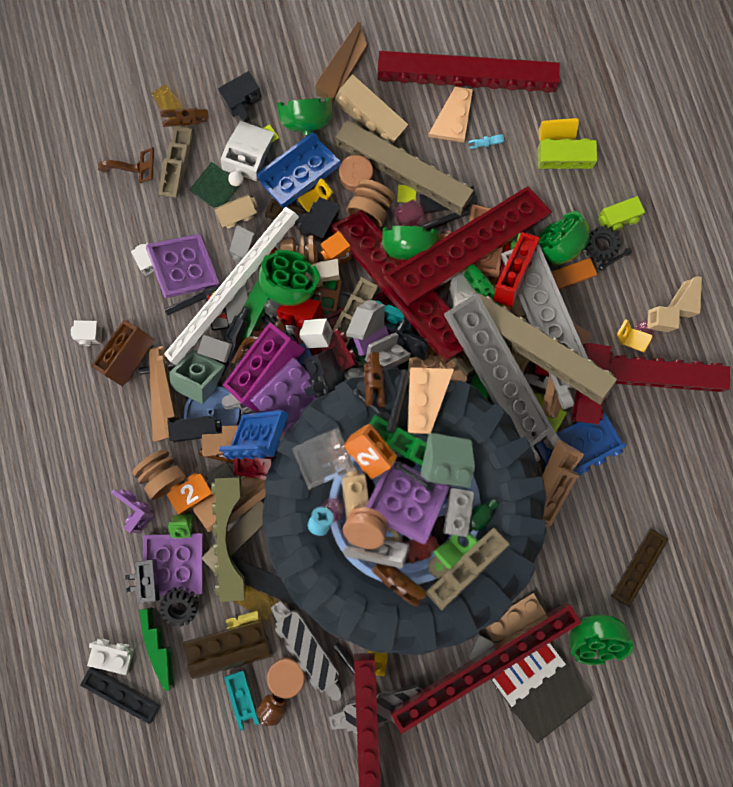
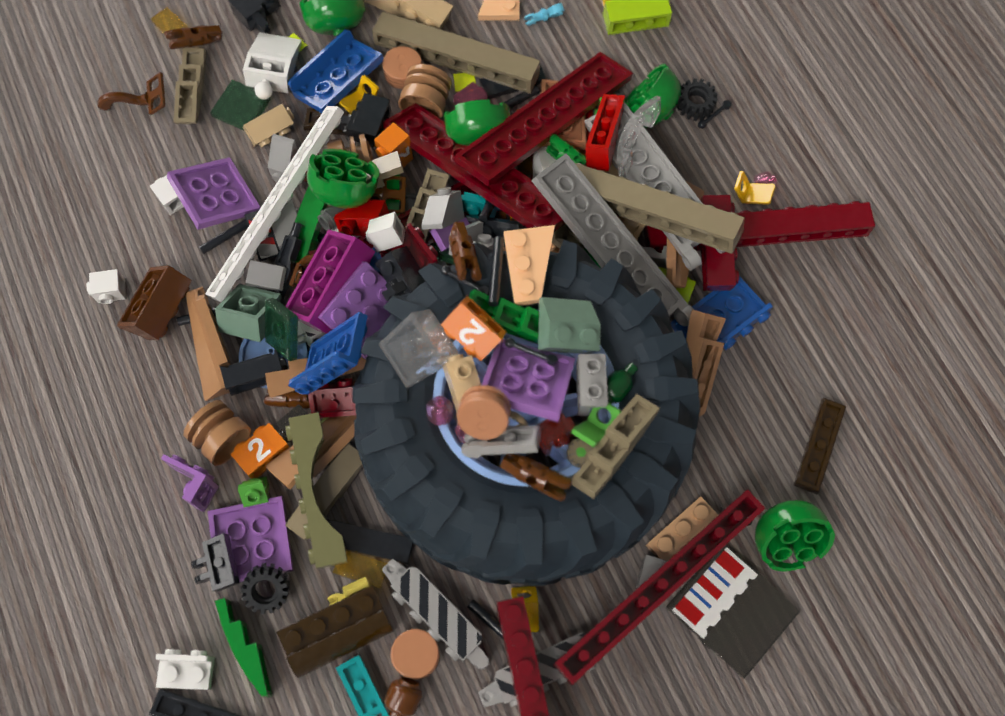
camera: 15 degrees left, 10 degrees down
(220, 399) = (281, 329): none -> clear green tile
(320, 527) = (427, 421): medium azure wheel -> none
(552, 262) = (644, 116): none -> clear slope
(574, 273) = (674, 134): orange tile -> none
(621, 214) = (711, 64): lime brick -> none
(684, 304) = (803, 148): tan arch -> none

